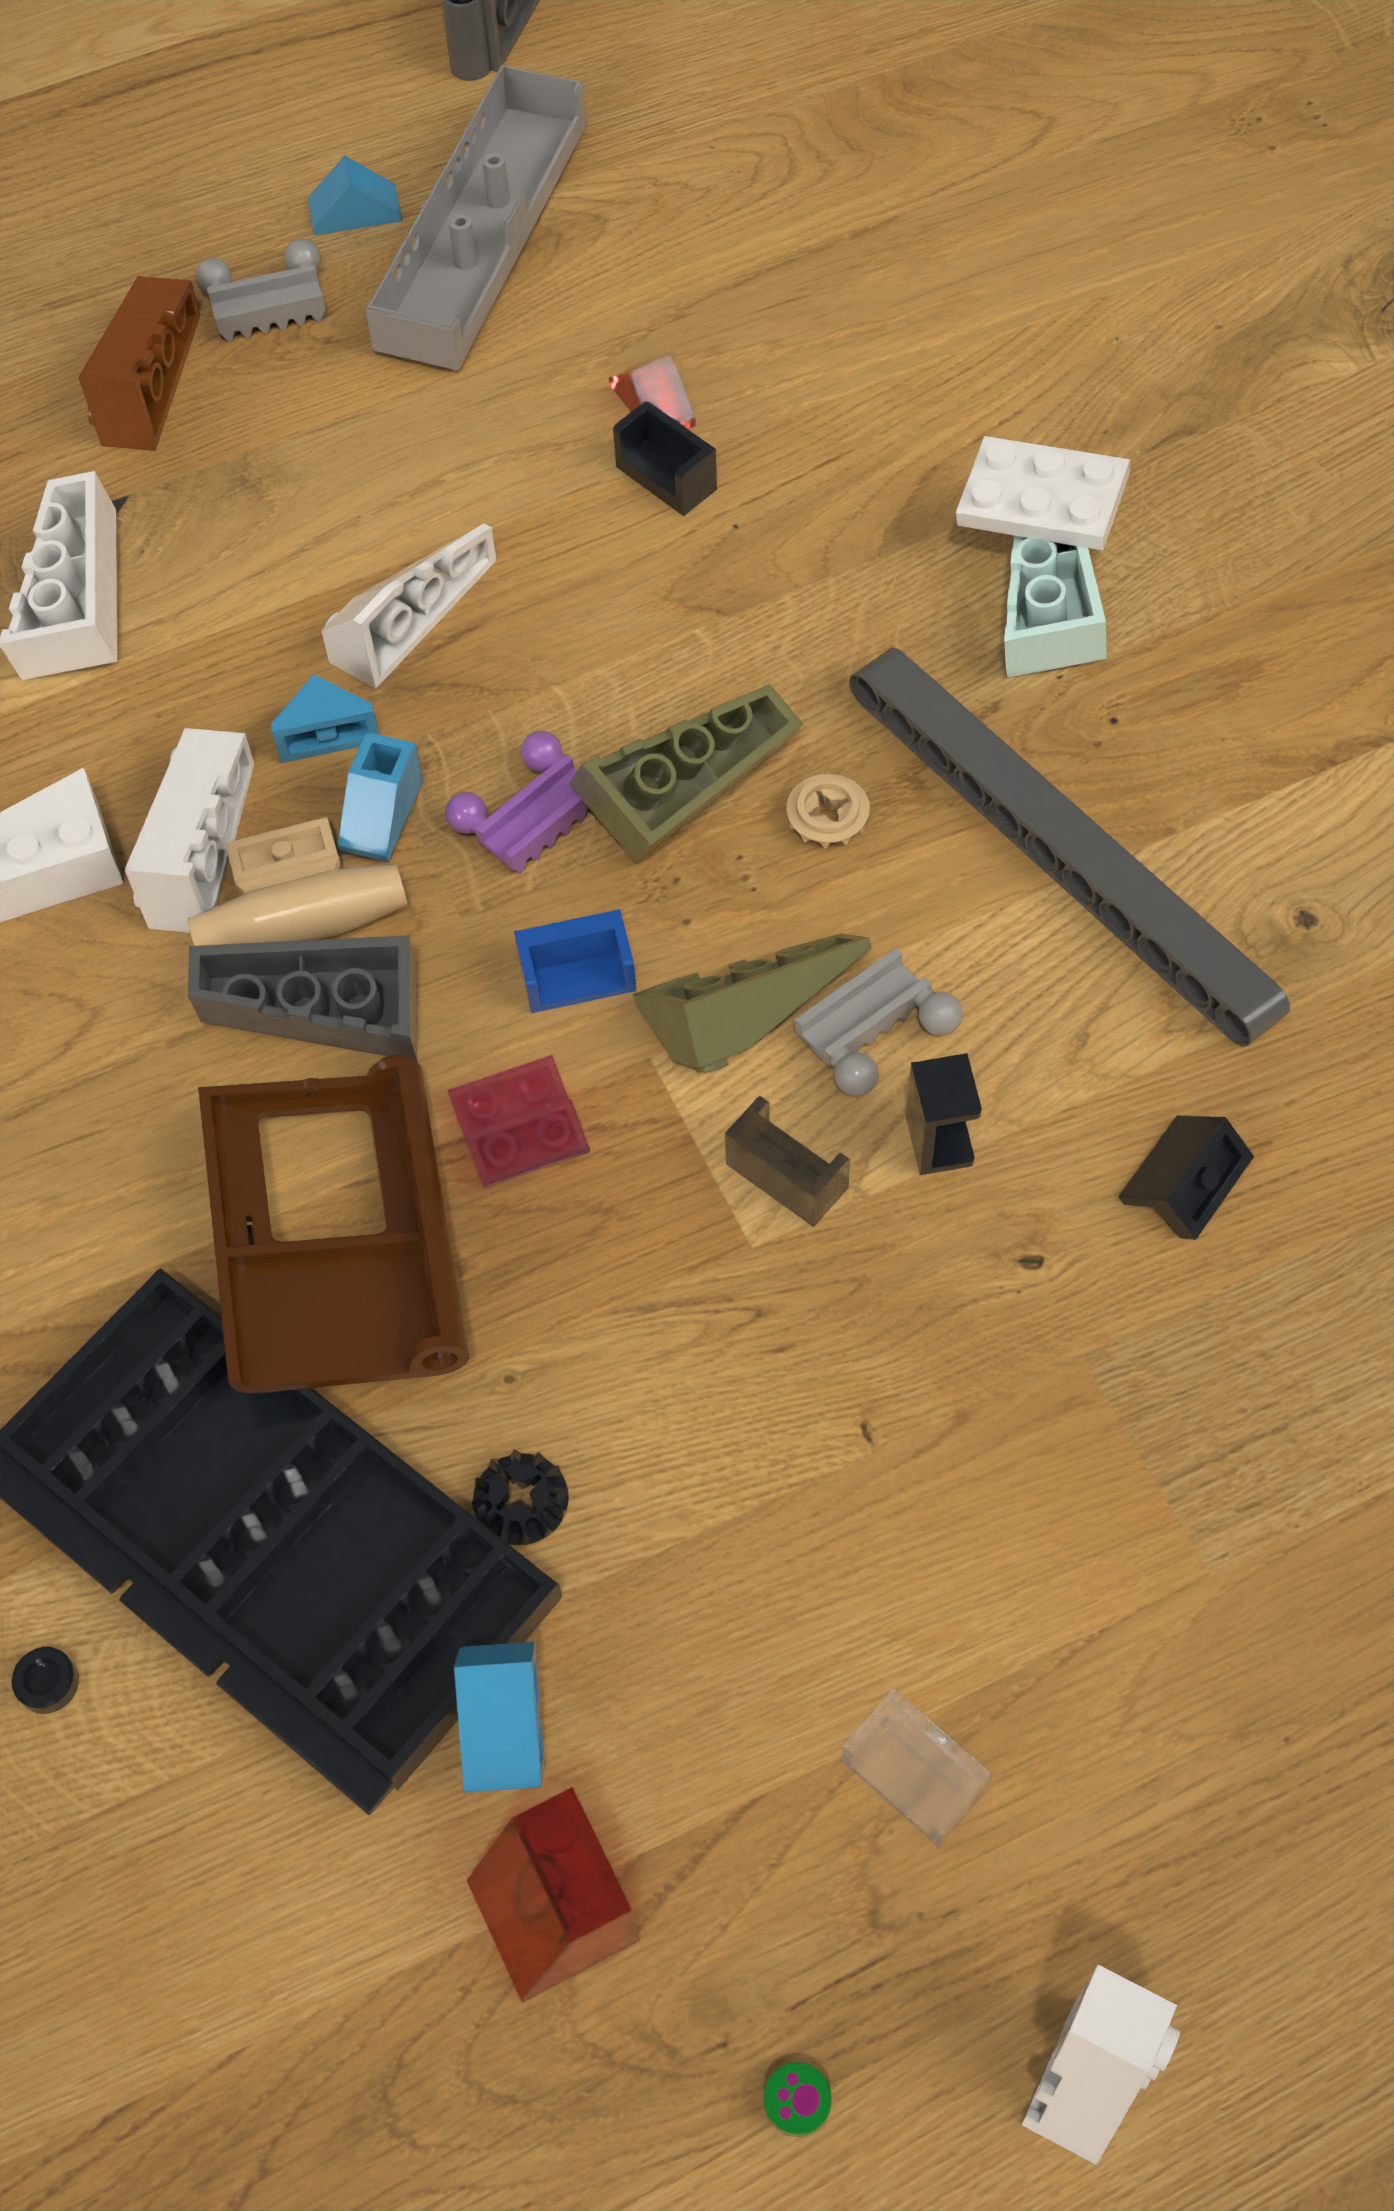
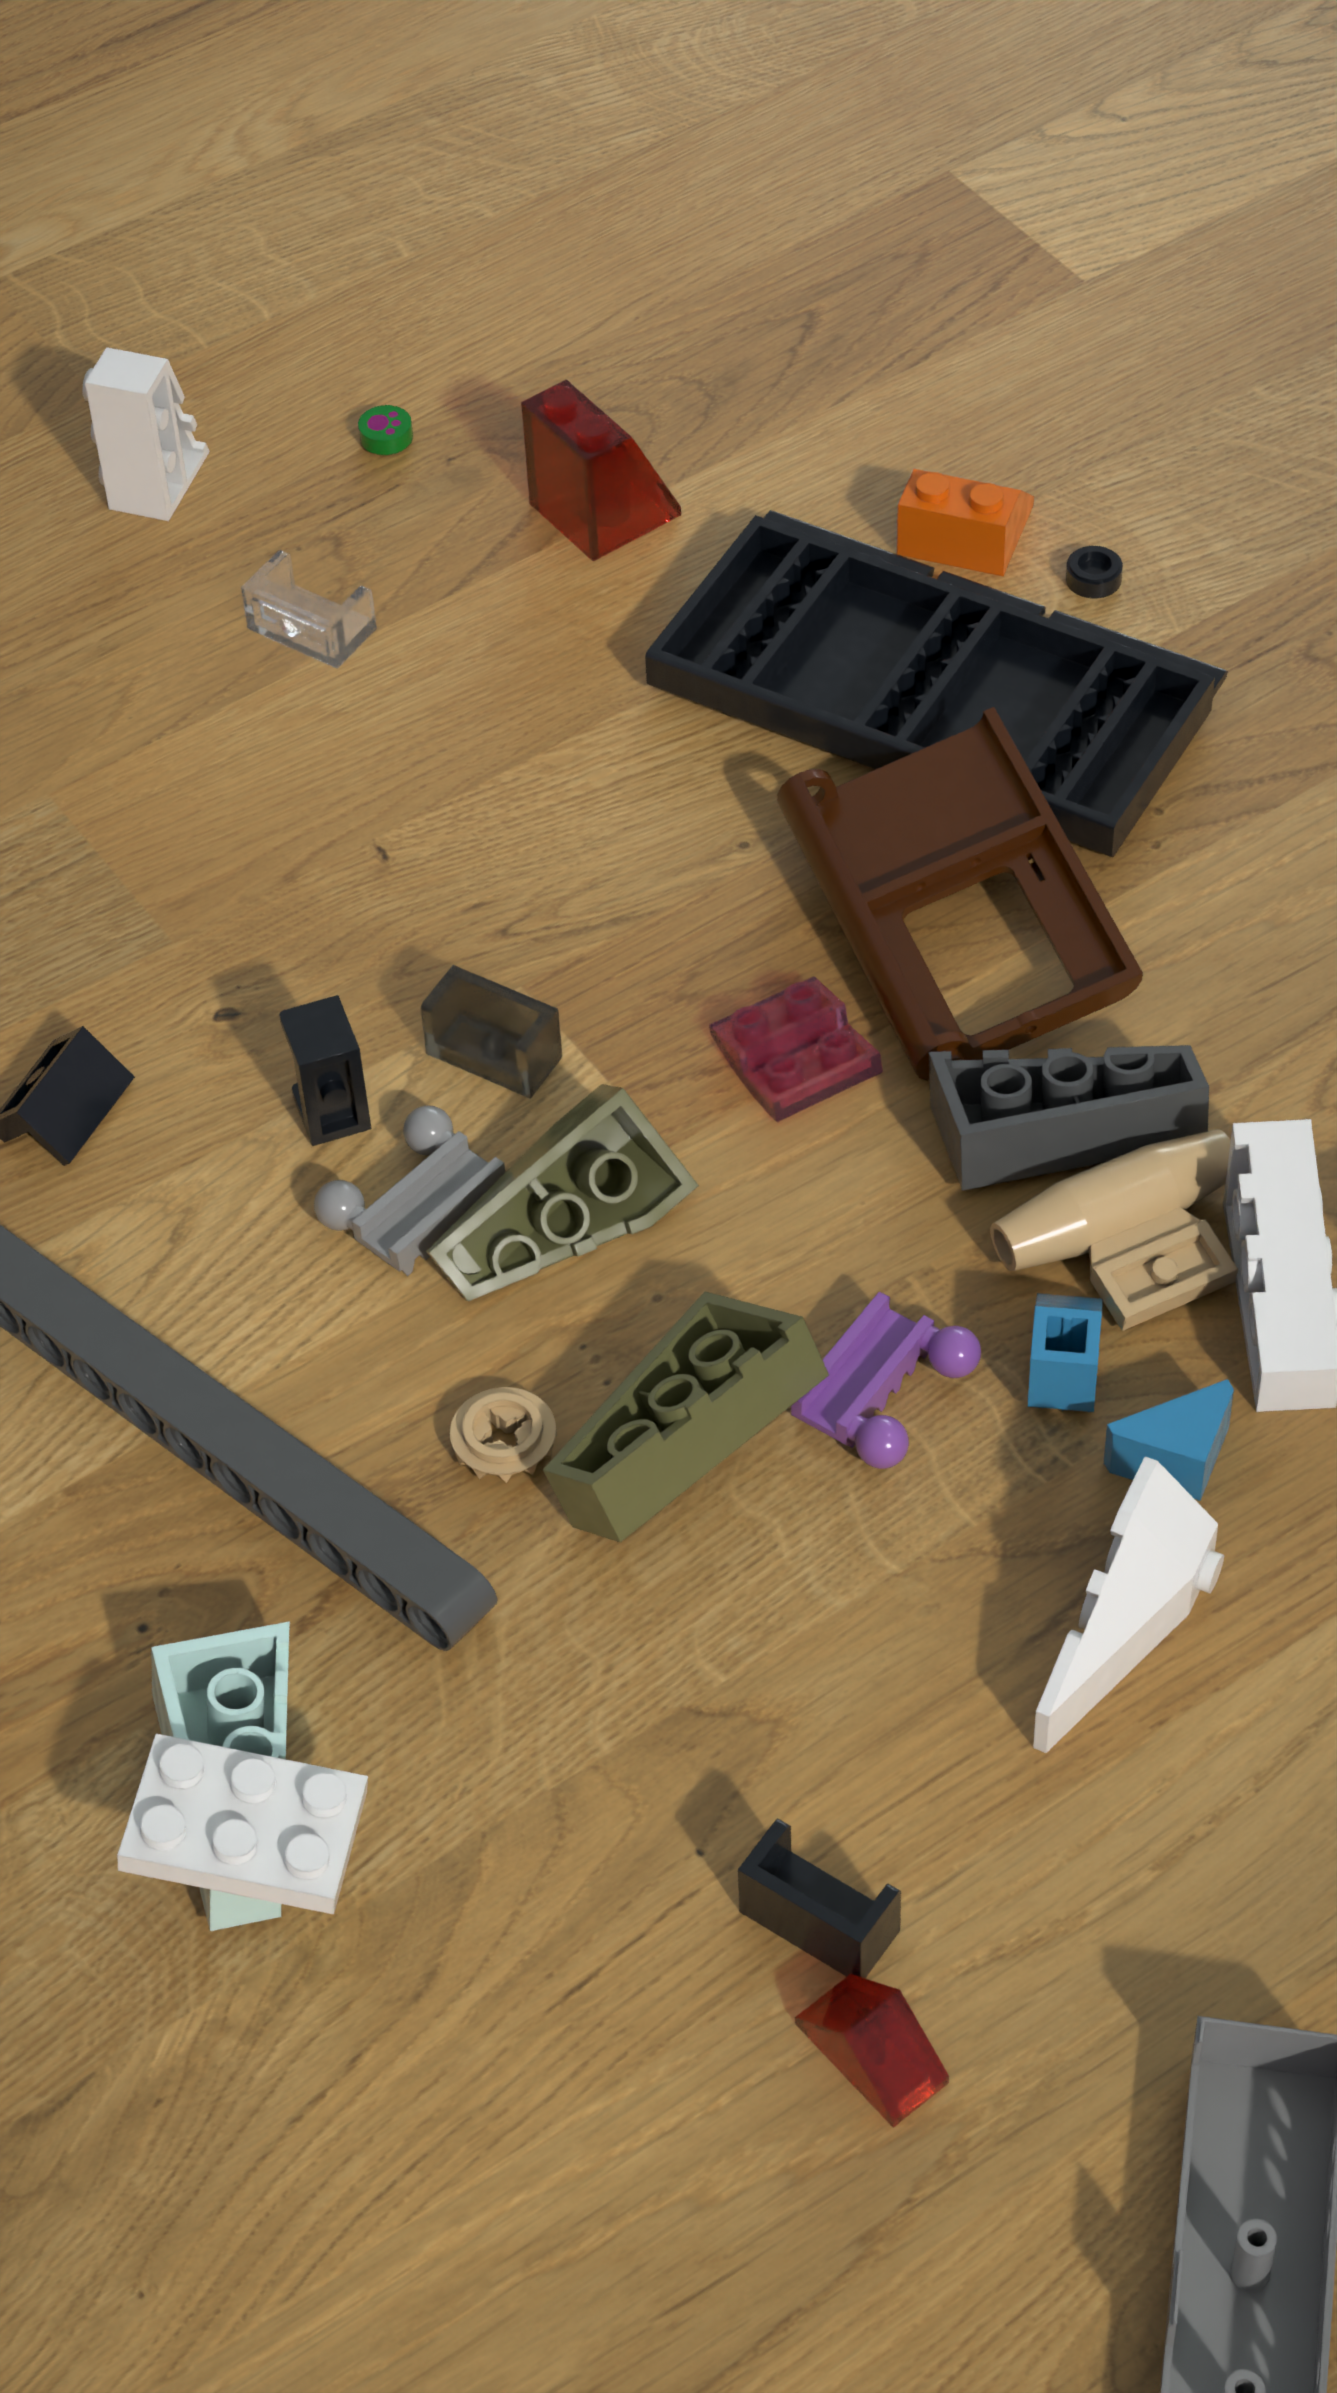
camera: 170 degrees right, 10 degrees down
(151, 1782) = (961, 521): none -> orange slope
(499, 1717) = (673, 565): dark azure panel -> none
(515, 1523) = (704, 763): black gear -> none
(575, 961) = (777, 1212): blue panel -> none

